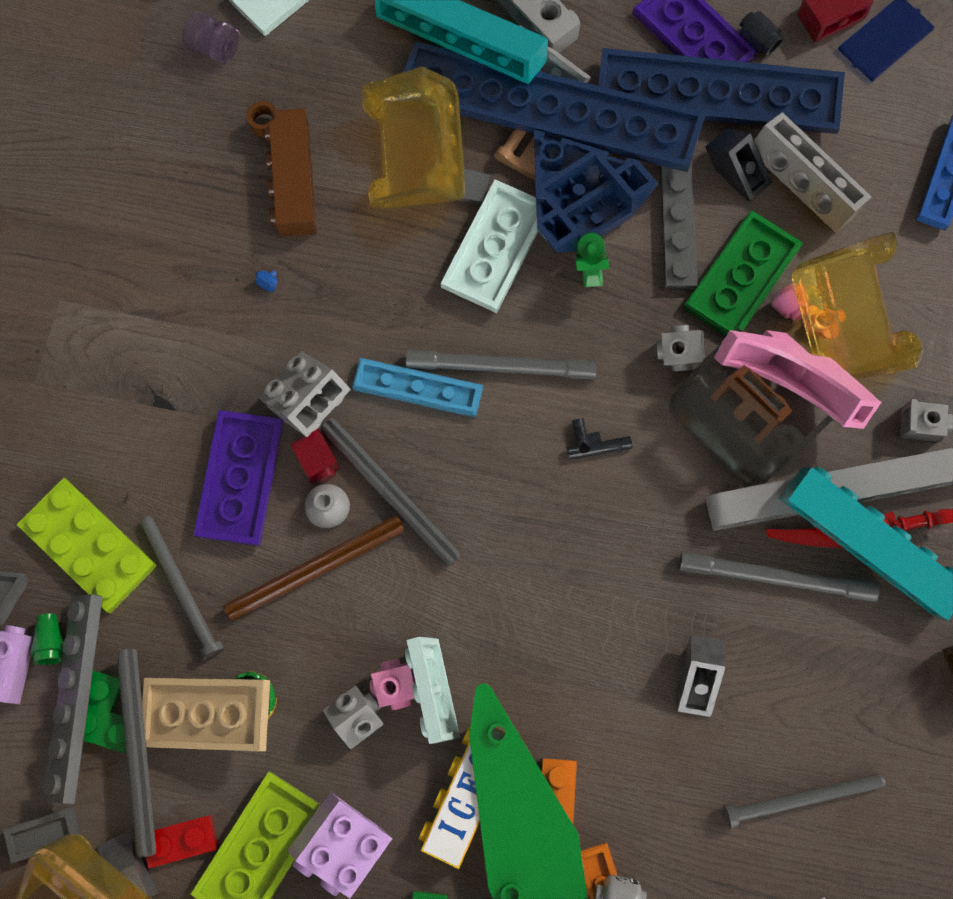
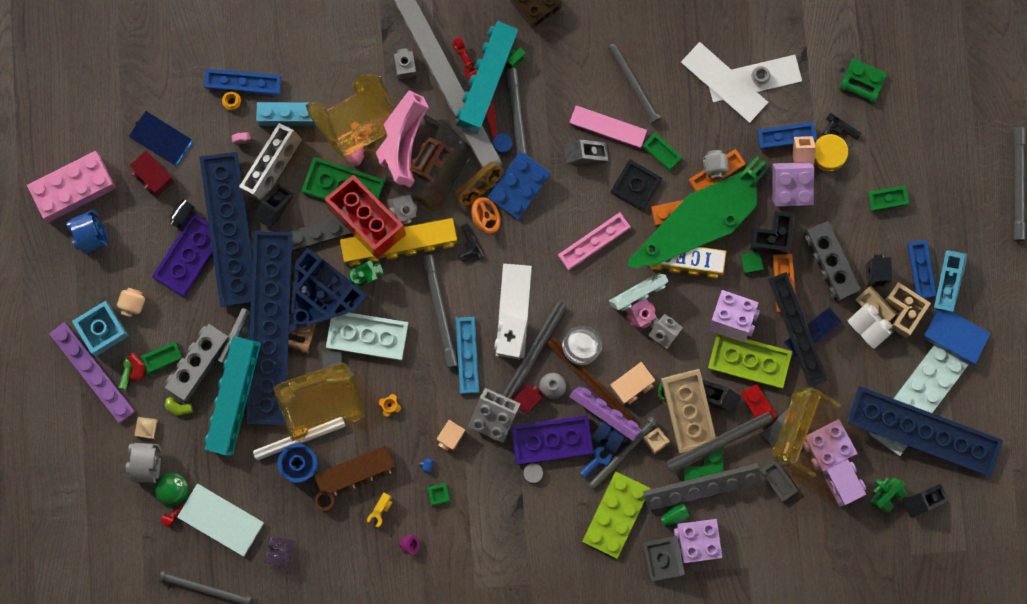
camera: 105 degrees left, 5 degrees up
(154, 220) = (410, 544): none -> magenta tile
(179, 646) = (656, 440): none -> tan tile
(182, 539) = (595, 462): none -> blue bar
(198, 434) = (533, 473): none -> light grey tile
(212, 569) = (609, 436): none -> dark blue wheel
(213, 776) = (721, 397): none -> black slope
(217, 285) = (438, 494): none -> green tile
(227, 197) = (382, 505): none -> yellow plate
(248, 574) = (611, 416): none -> medium lavender plate
(284, 634) = (632, 383): none -> light nougat brick
(298, 324) = (450, 436): none -> light nougat brick
(330, 93) = (289, 457): none -> blue brick
(371, 128) = (313, 433): none -> white axle
(373, 243) = (389, 400): none -> light orange plate
(373, 568) = (581, 346): none -> clear piece
(432, 474) = (518, 328): none -> white brick
(468, 481) = (515, 295): none -> white sticker
(544, 645) = (594, 241): none -> bright pink tile
(622, 747) = (636, 185): none -> black tile
(630, 332) = (417, 238): none -> yellow brick
(636, 471) = (482, 216): none -> orange piece
(668, 811) = (662, 152): none -> green tile
(673, 546) = (519, 185): none -> blue plate
(683, 279) = (365, 216): none -> red brick
(705, 488) = (478, 191): none -> pearl gold beam
(736, 729) = (608, 127): none -> bright pink tile
(752, 541) = (502, 143): none -> blue tile
(859, 144) = (241, 138): none -> bright pink tile
(887, 206) = (284, 113): none -> medium azure brick
(896, 604) = (515, 58): none -> green plate
(926, 141) = (229, 95): none -> light orange plate

